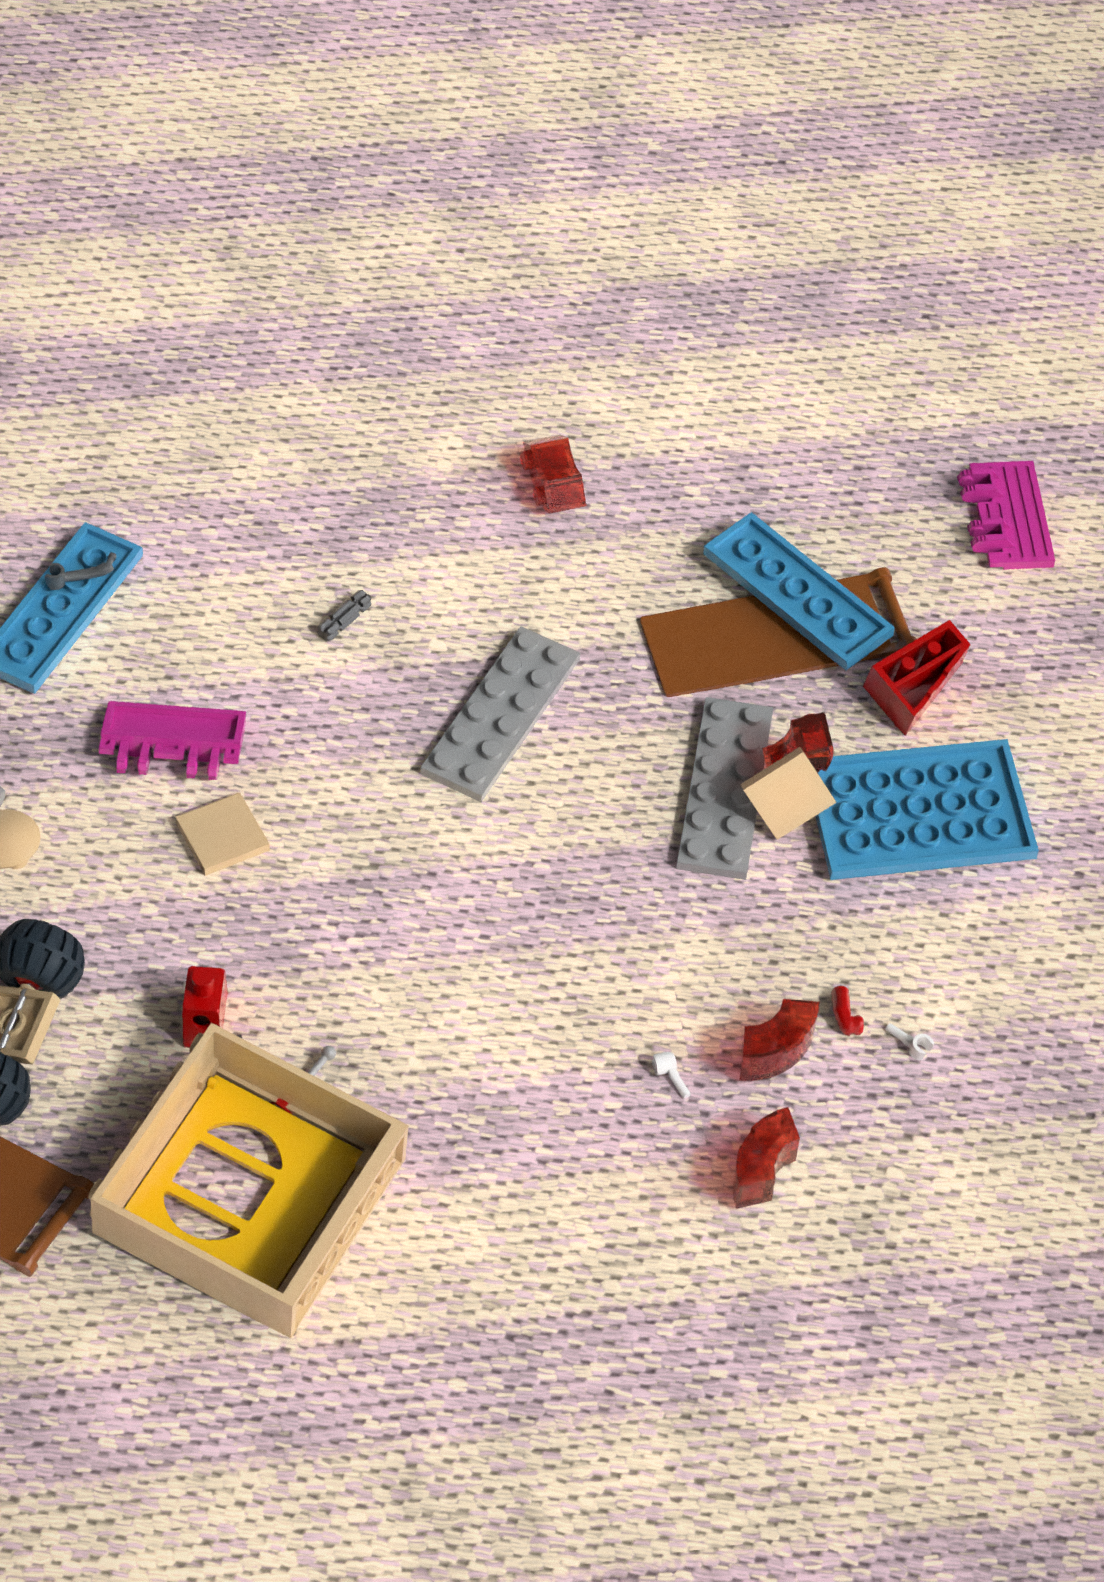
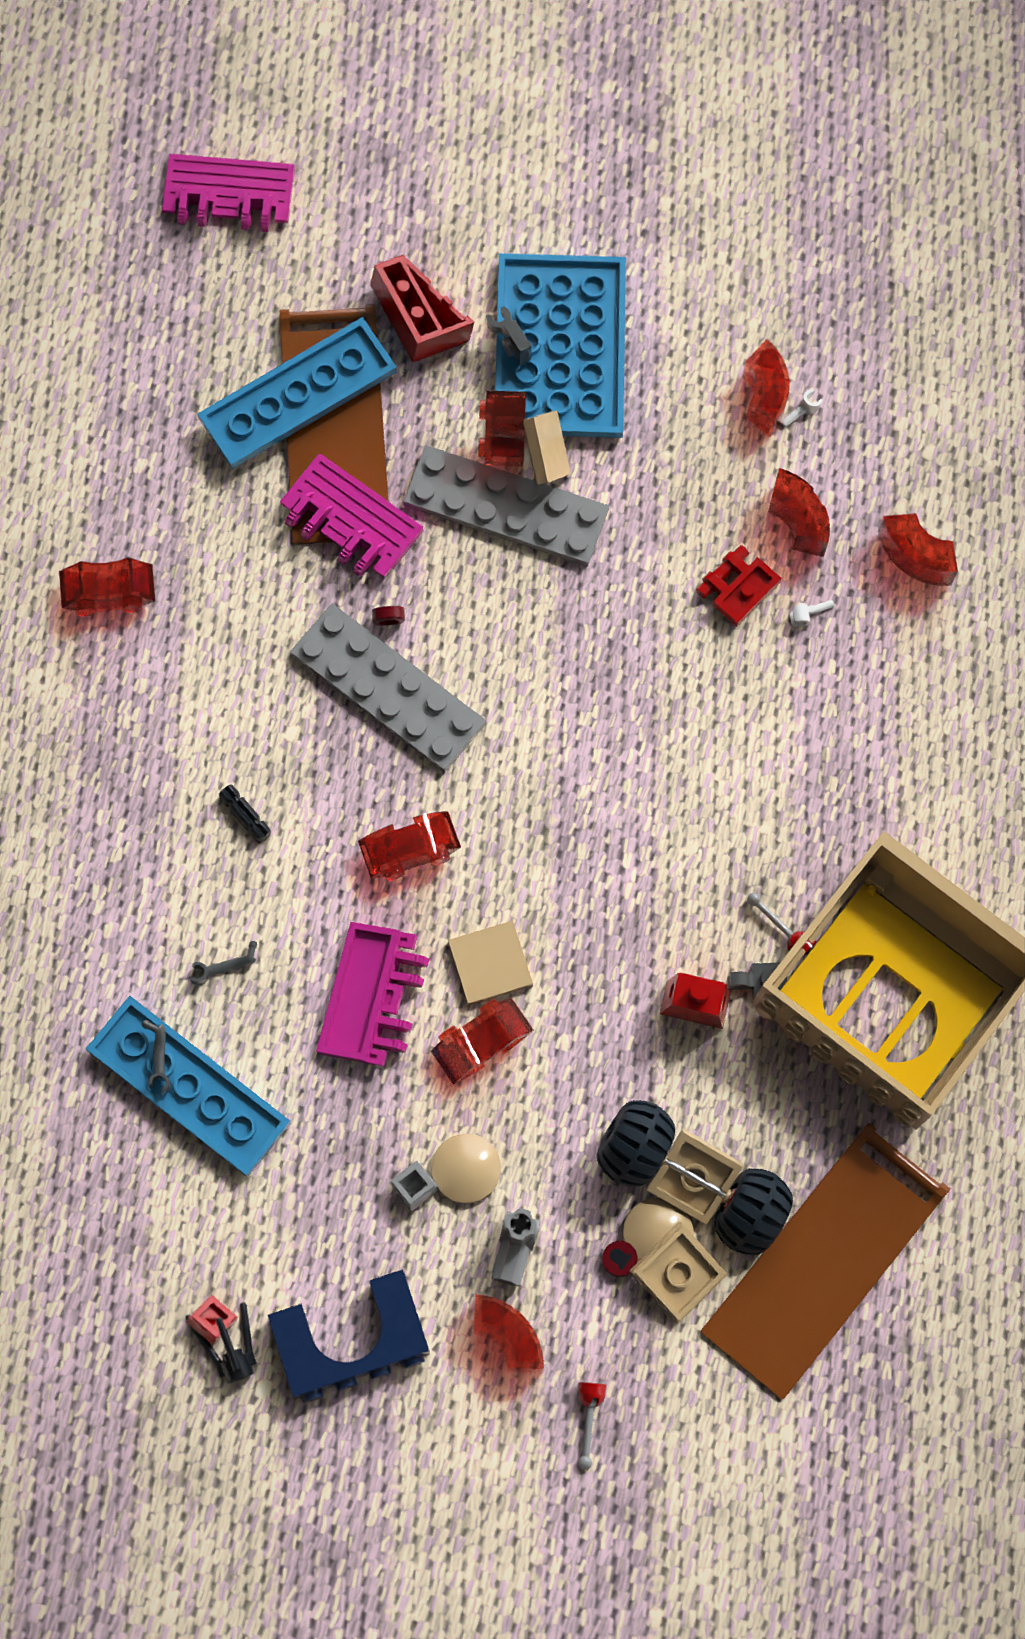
camera: 80 degrees left, 20 degrees up
(145, 833) = (491, 1032): none -> clear red brick
(177, 608) = (224, 966): none -> dark grey piece
(336, 751) = (395, 851): none -> clear red brick
(576, 699) = (388, 615): none -> dark red tile
(676, 655) = (353, 516): none -> dark pink hinge
(681, 1009) = (745, 592): none -> red plate
(842, 1011) = (762, 456): red arm -> none
(905, 754) = (514, 340): none -> dark grey plate
(922, 997) = (770, 387): none -> clear red brick

